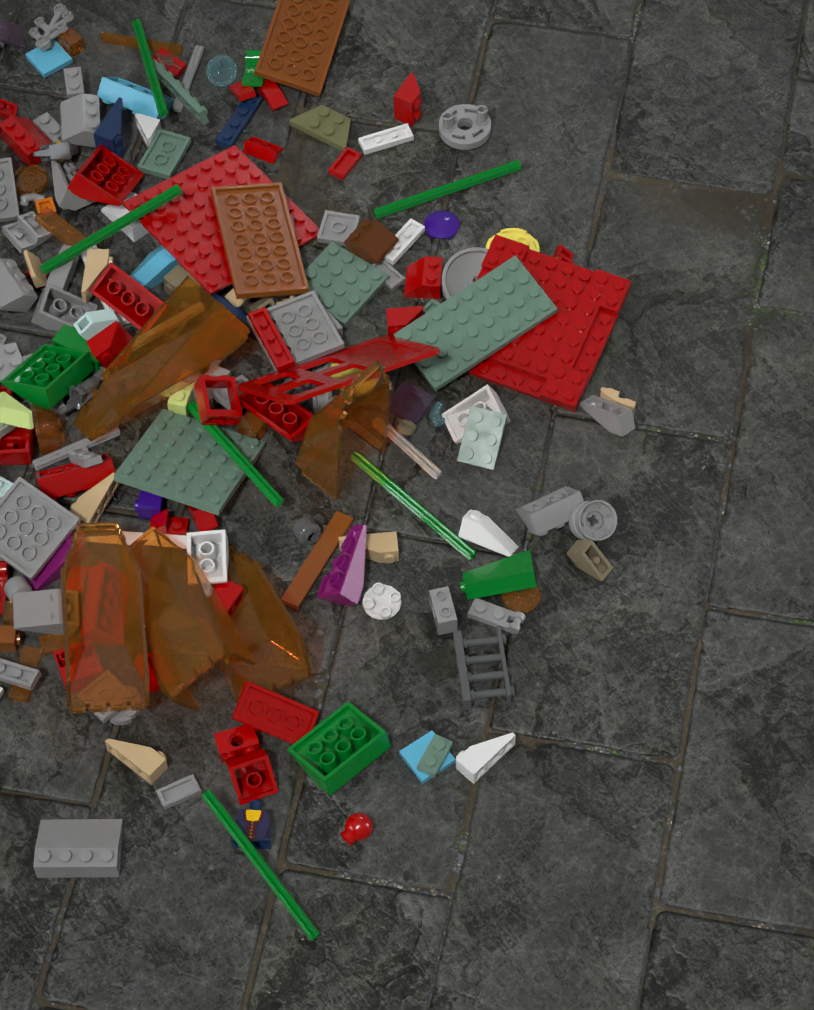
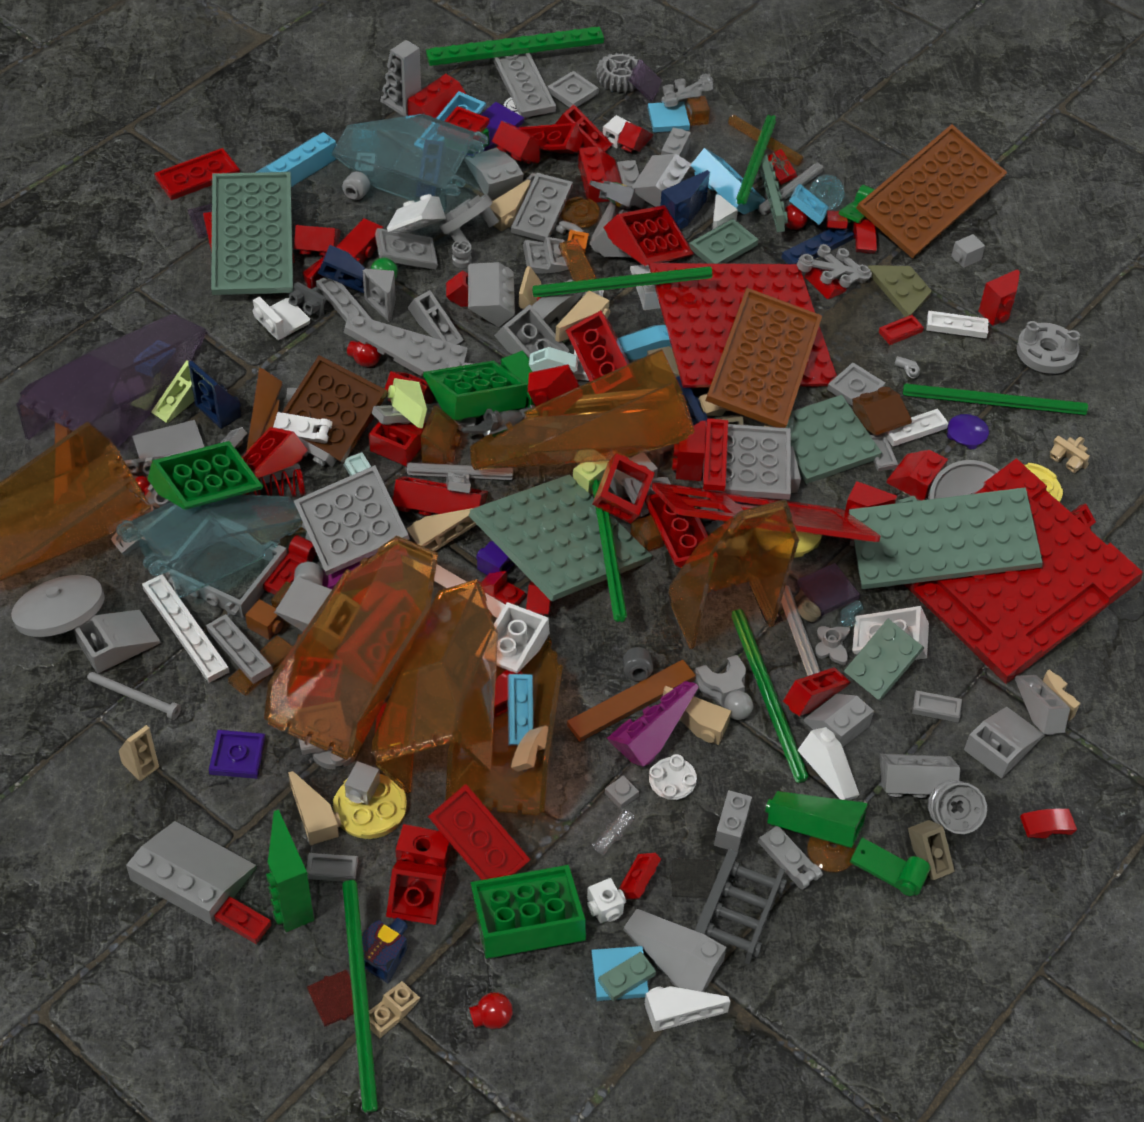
camera: 25 degrees right, 5 degrees down
(16, 91) = (613, 130): none -> white brick
(33, 92) = (633, 137): none -> red slope
(53, 748) = (237, 754): none -> dark purple tile
(140, 861) = (242, 920): none -> red plate
(162, 811) = (287, 879): none -> green slope
(164, 720) = (362, 783): none -> light grey brick
(176, 733) = (377, 818): none -> light yellow tile
(209, 100) = (795, 217): none -> red piece
(214, 88) = (809, 203): none -> medium azure tile
(240, 878) = (333, 997): none -> clear red piece
(245, 608) = (519, 707): none -> medium azure tile
(251, 352) = (690, 455): none -> red slope
(269, 632) = (529, 745): none -> tan slope
(286, 129) = (858, 272): none -> light grey plant
(286, 863) = (392, 1008): none -> tan slope
(351, 630) = (621, 792): none -> light grey plate
(359, 70) = (968, 250): none -> light grey brick
(364, 661) = (613, 831): none -> clear pin
(370, 192) = (909, 366): none -> light grey arm
(382, 515) = (726, 687): none -> light grey piece
(389, 712) = (605, 901): none -> white brick
(400, 683) = (639, 875): none -> red plate
(436, 444) = (832, 644): none -> light grey animal
(445, 486) = (814, 690): none -> red slope
(458, 720) = (682, 953): none -> light grey wedge
(474, 494) = (842, 715): none -> light grey slope
(527, 204) = (1072, 450): none -> tan hips
(536, 453) = (937, 706): none -> light grey tile
(580, 587) = (904, 875): none -> green door
(596, 456) = (1002, 741): none -> light grey slope
(658, 499) = (1048, 821): none -> red slope

